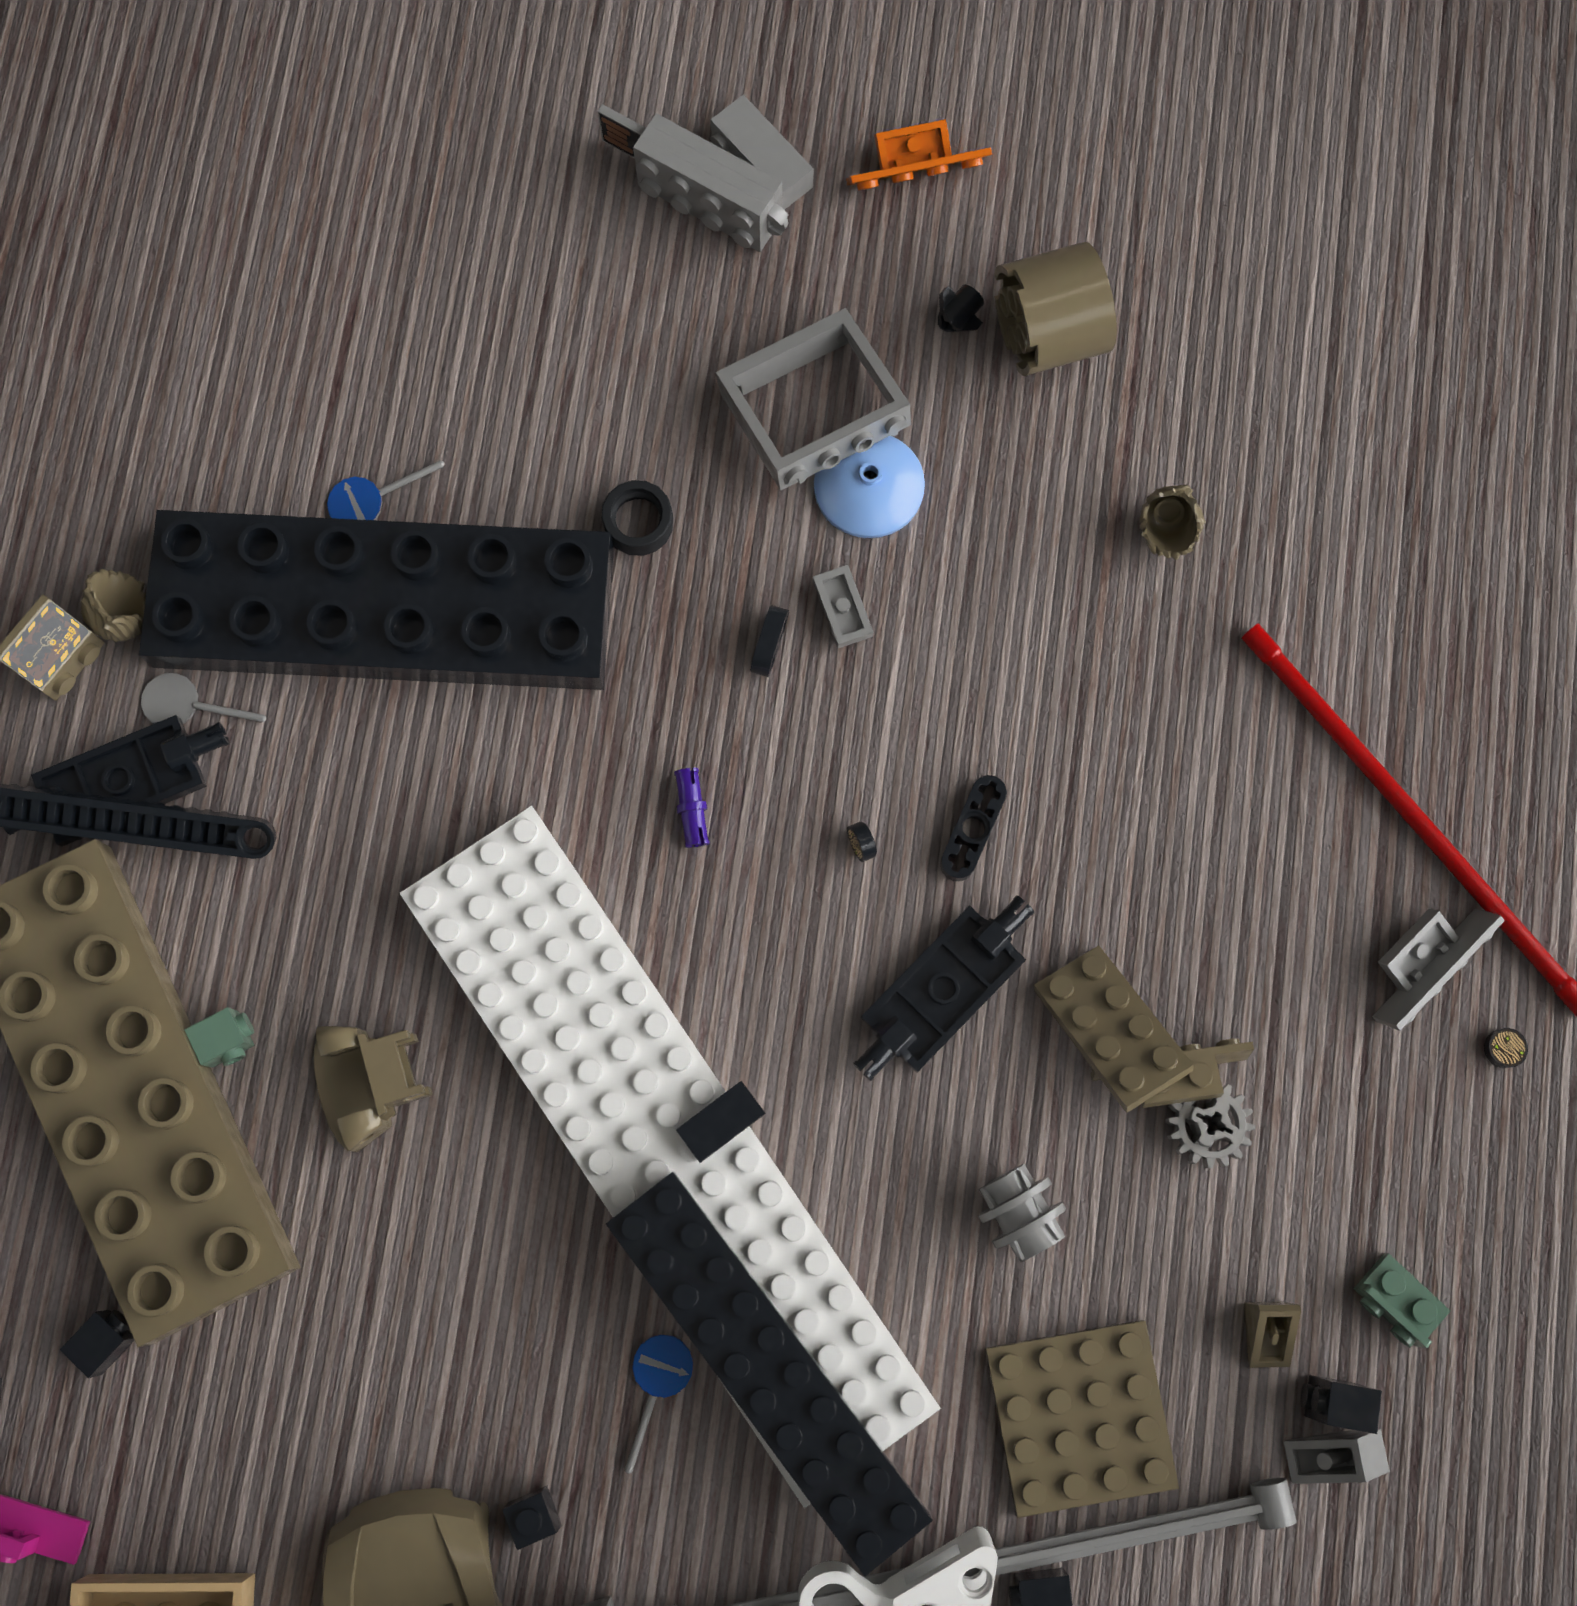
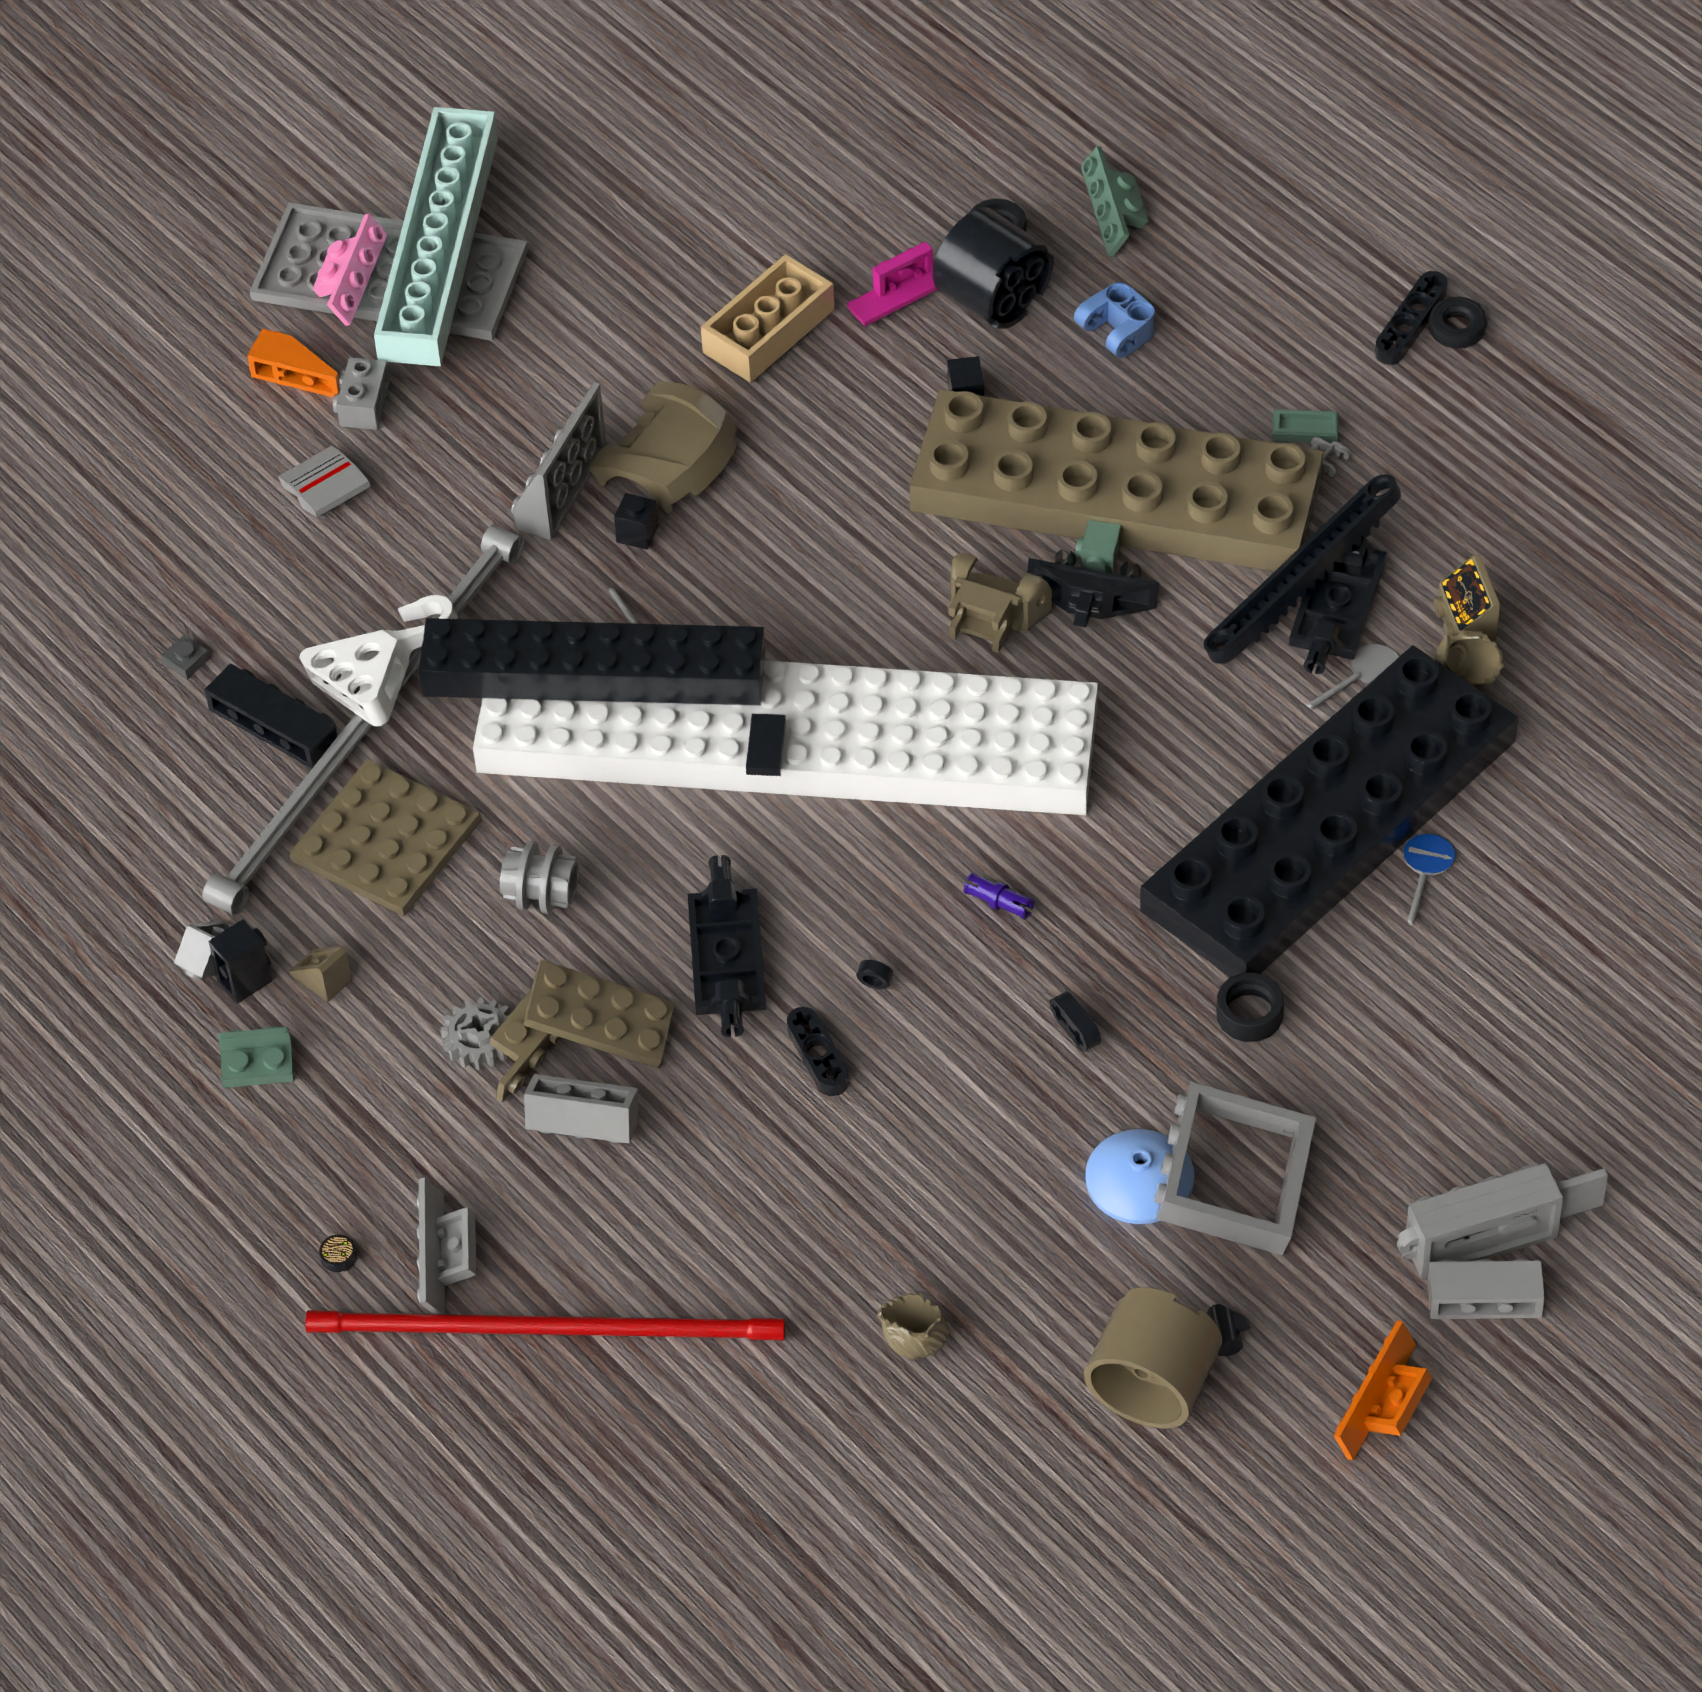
camera: 135 degrees right, 25 degrees down
(288, 1002) = (1095, 592): none -> black connector
(842, 606) = (1057, 1084): light grey plate -> none
(1212, 960) = (581, 1108): none -> light grey brick

